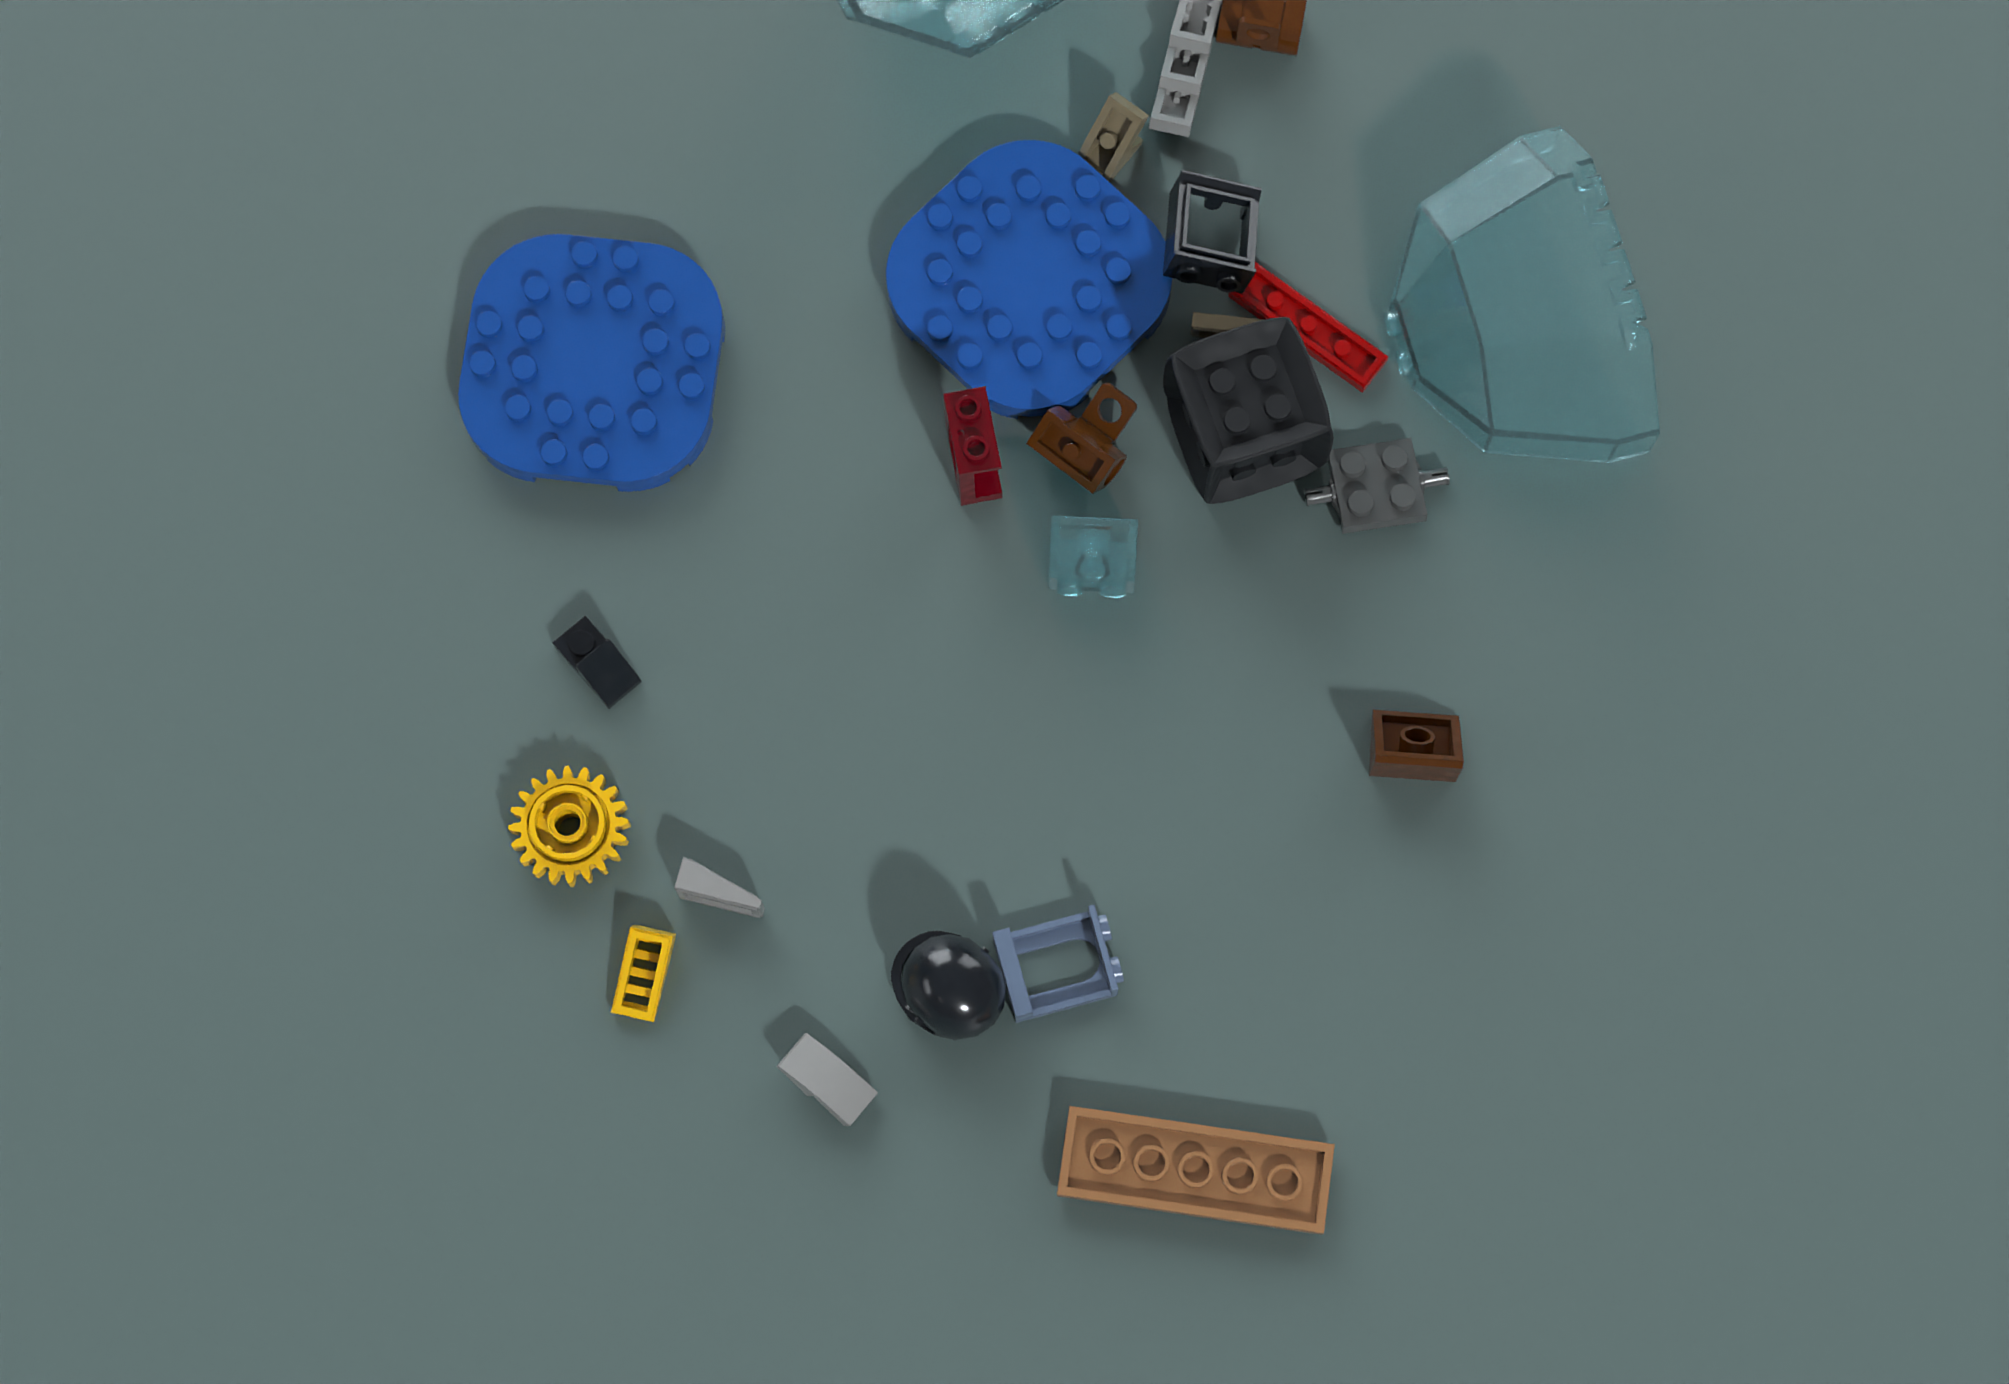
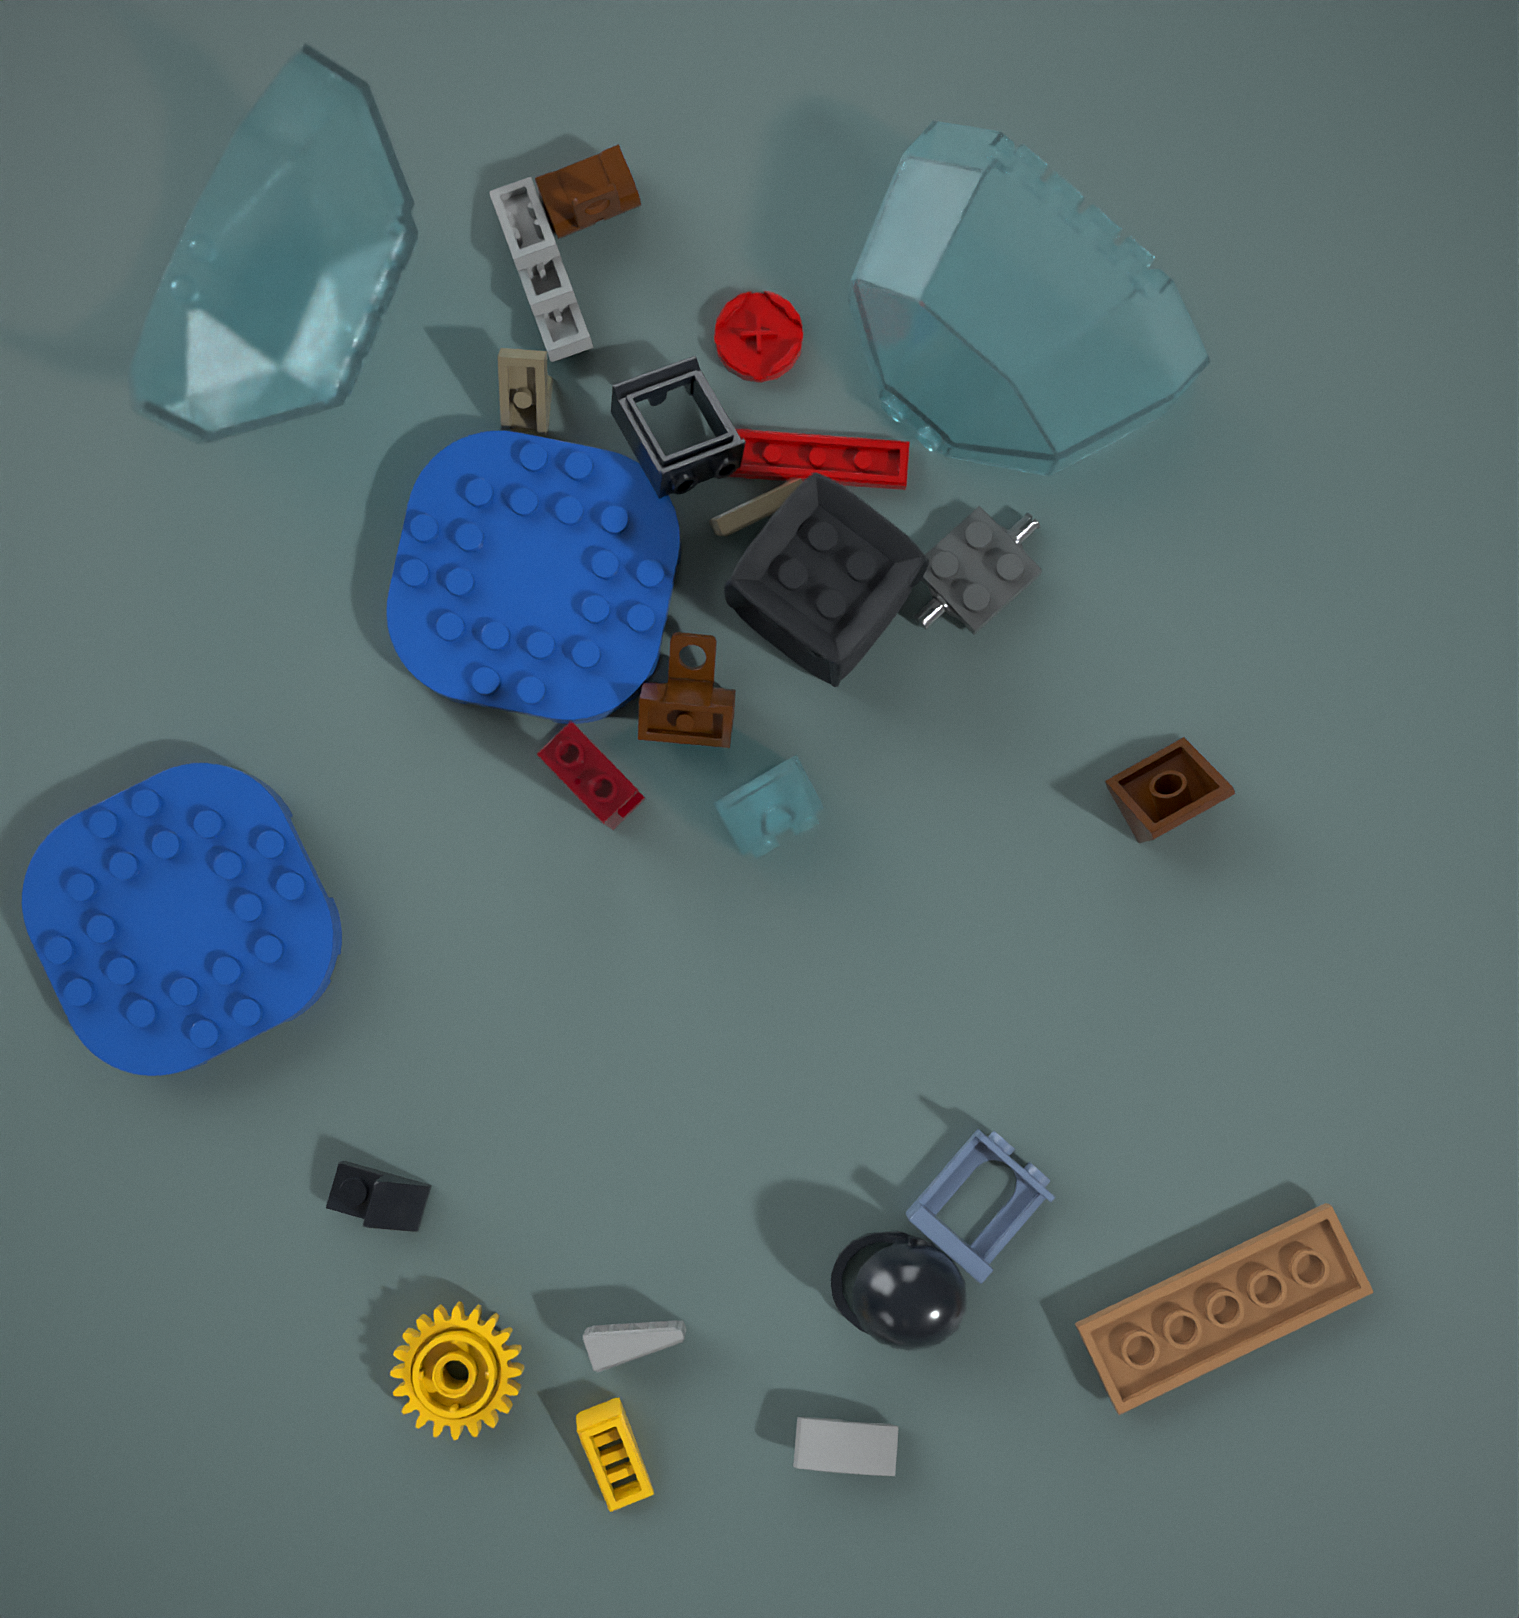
camera: 35 degrees left, 10 degrees up
(1323, 207) = (758, 336): none -> red tile

